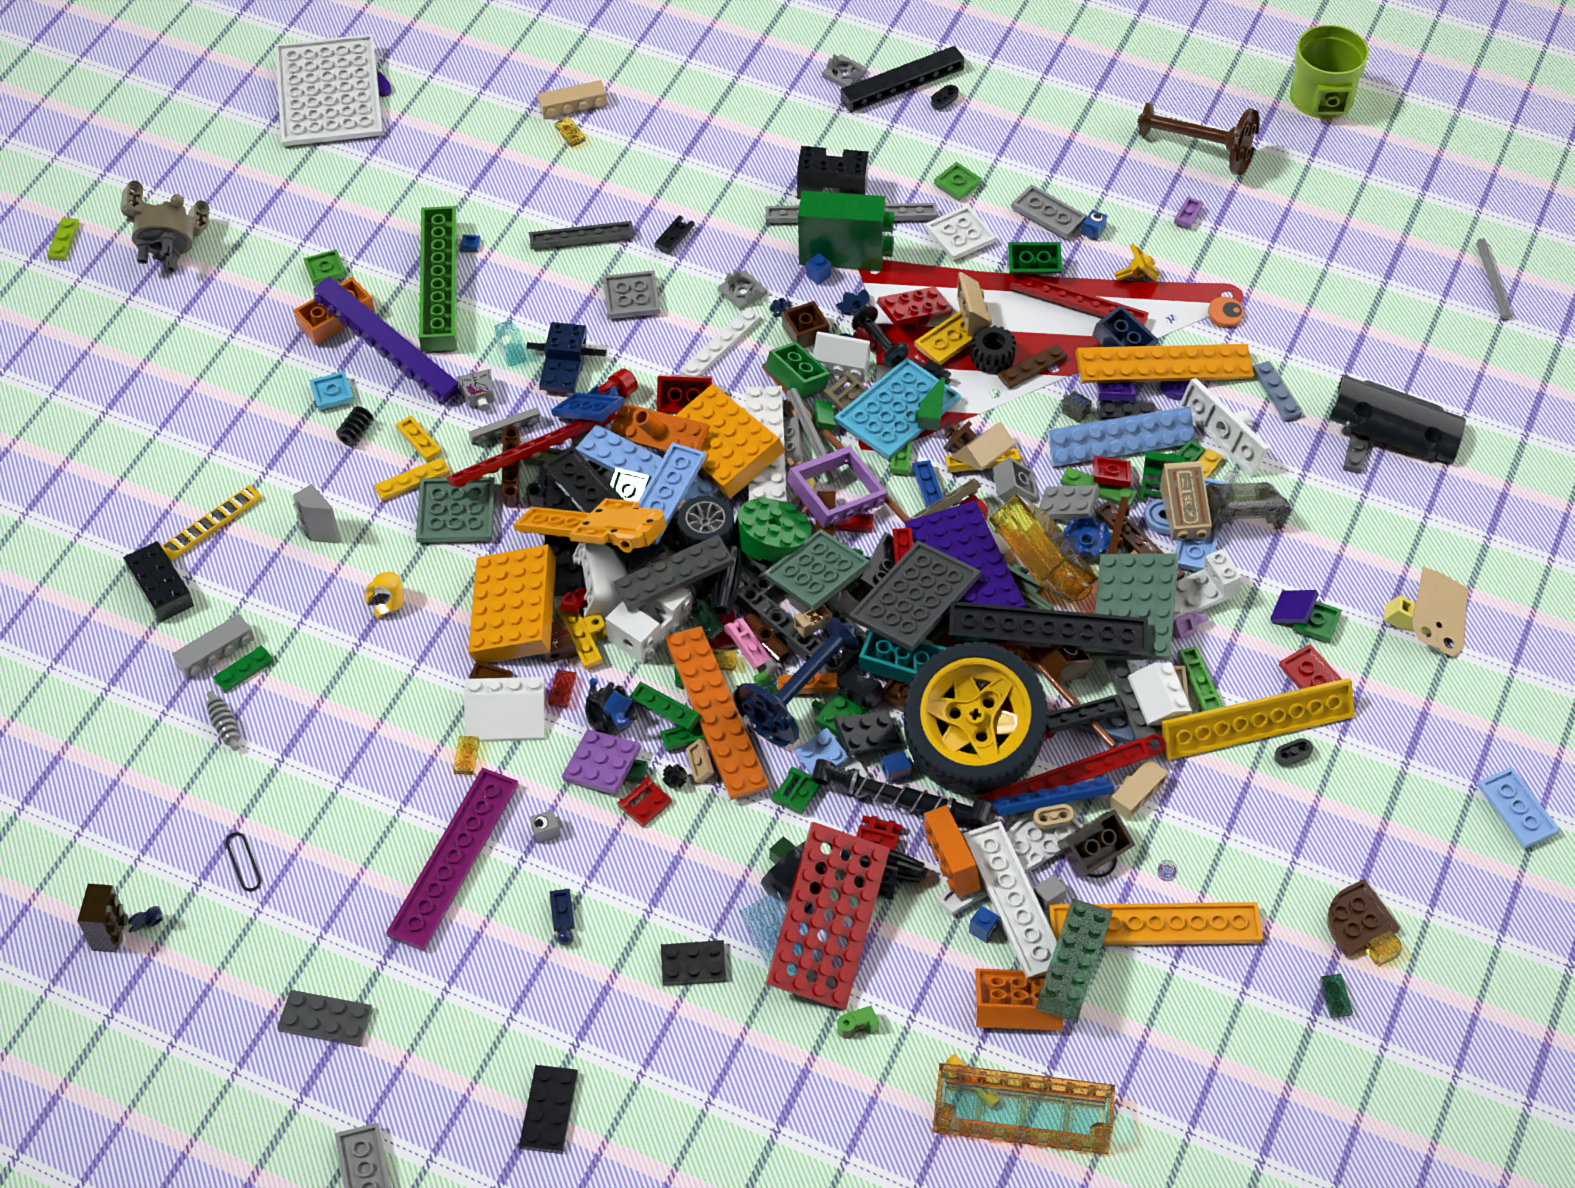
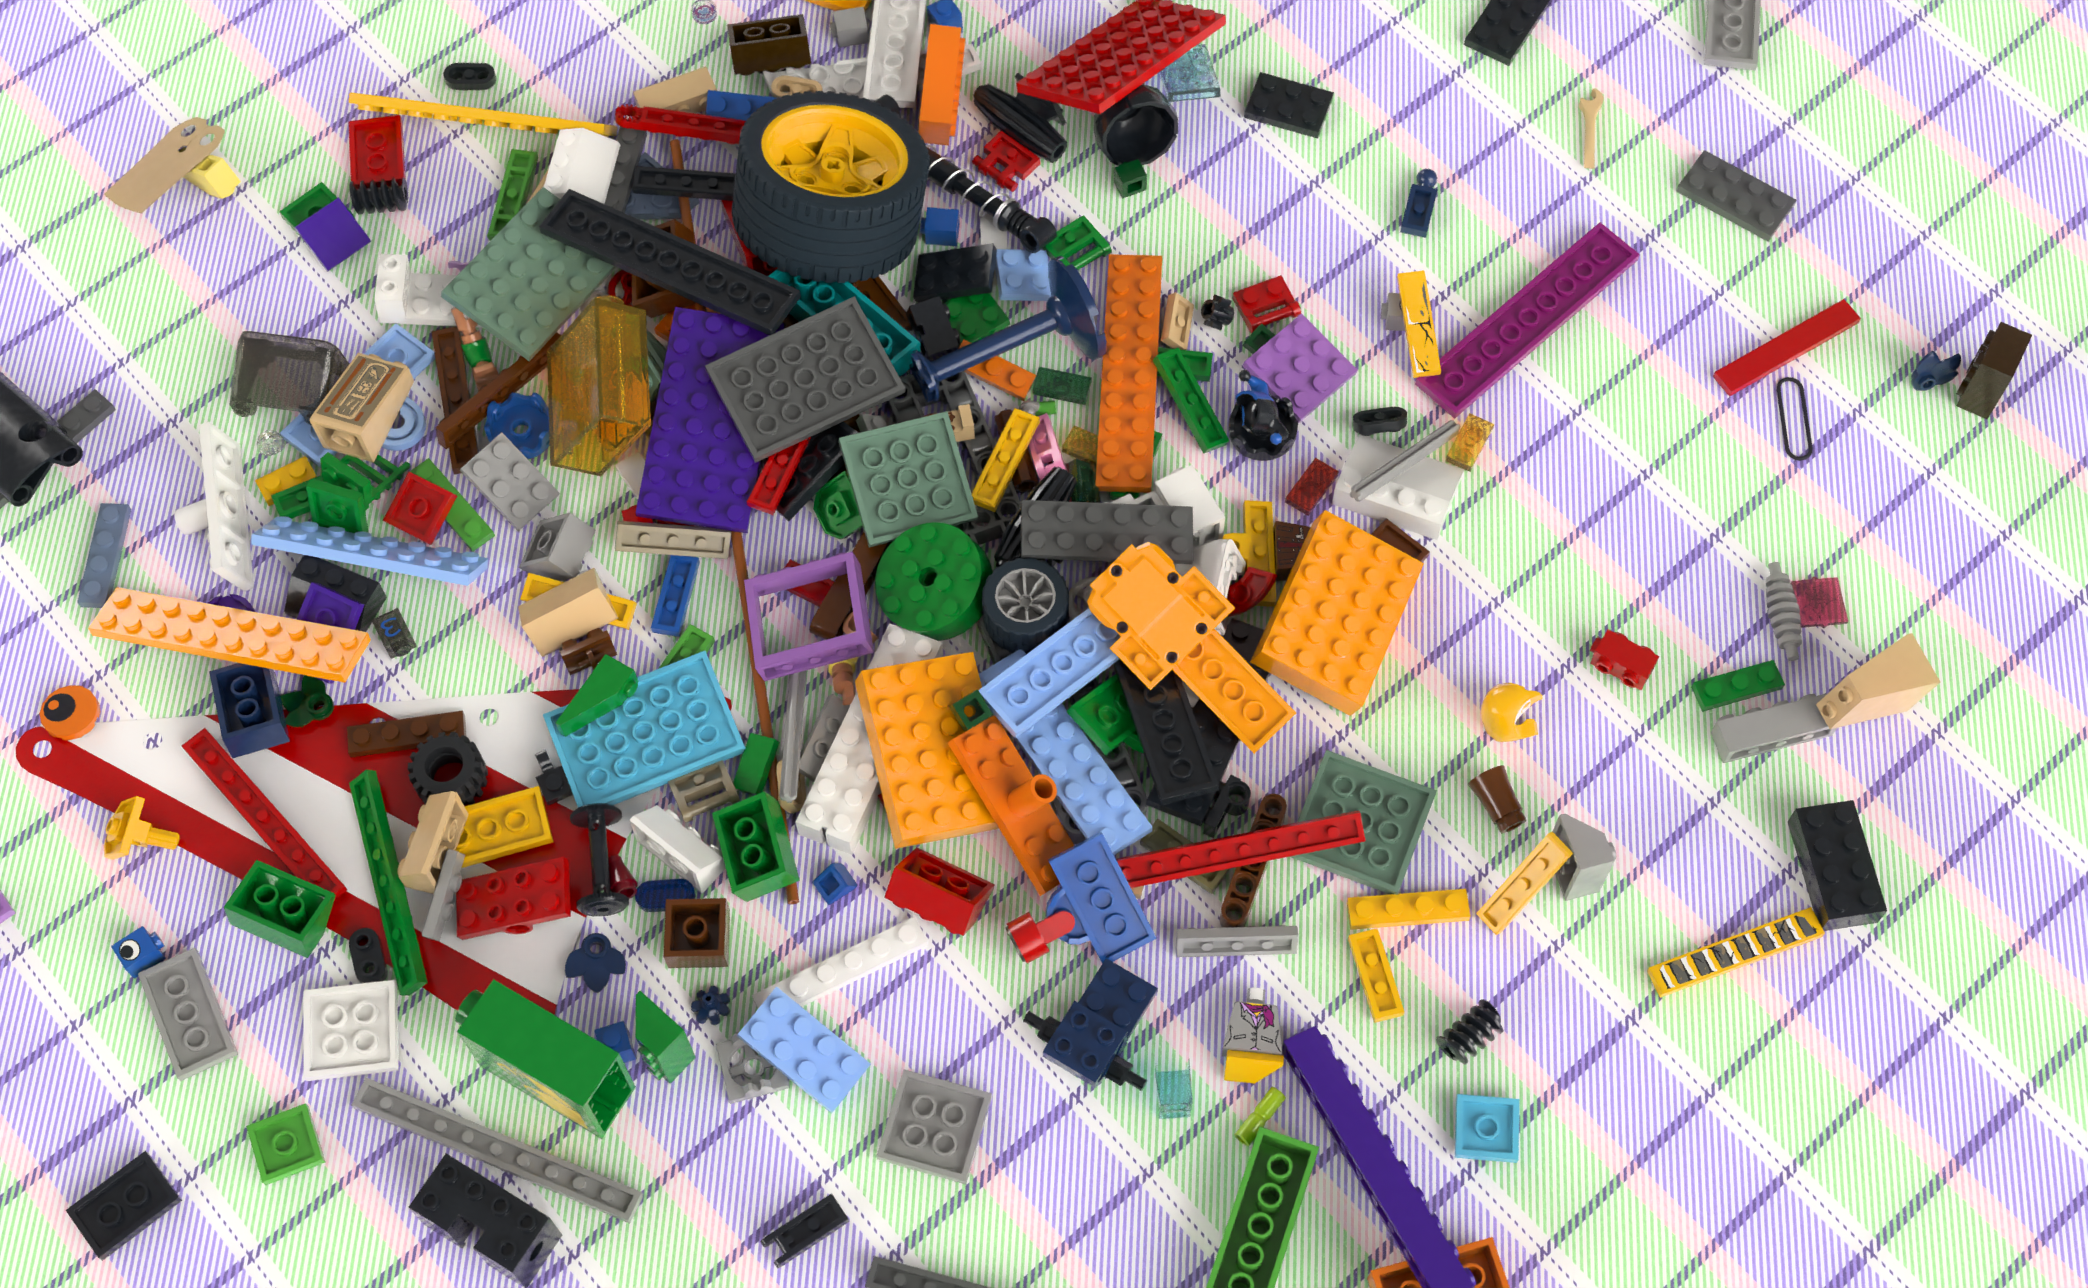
camera: 155 degrees left, 10 degrees up
(151, 674) = (1881, 686): none -> tan slope
(200, 741) = (1820, 602): none -> clear pink piece
(258, 910) = (1786, 347): none -> red tile
(320, 649) = (1623, 659): none -> red brick
(344, 490) = (1524, 883): none -> yellow tile
(377, 547) = (1498, 798): none -> reddish brown plant
(457, 359) = (1262, 1113): none -> lime piece
(458, 1048) = (1590, 110): none -> tan piece
(468, 371) = (1250, 1066): none -> yellow tile
(503, 711) = (1404, 461): none -> light grey axle
(528, 808) = (1418, 324): none -> yellow tile
(532, 746) = (1379, 420): none -> black plate
(706, 443) = (980, 710): none -> dark green plate
(717, 297) = (803, 1049): none -> light blue plate
(745, 380) = (834, 882): none -> blue slope
(766, 617) = (1004, 459): none -> yellow tile
(792, 266) = (660, 1041): none -> green slope
(952, 294) = (441, 906): none -> light grey plate
(973, 264) = (368, 955): none -> black plate
(993, 298) = (387, 884): none -> green plate
(1017, 135) = (123, 1205): none -> black plate
(1163, 445) = (336, 506): none -> green plate
(1286, 642) = (379, 197): none -> black piece

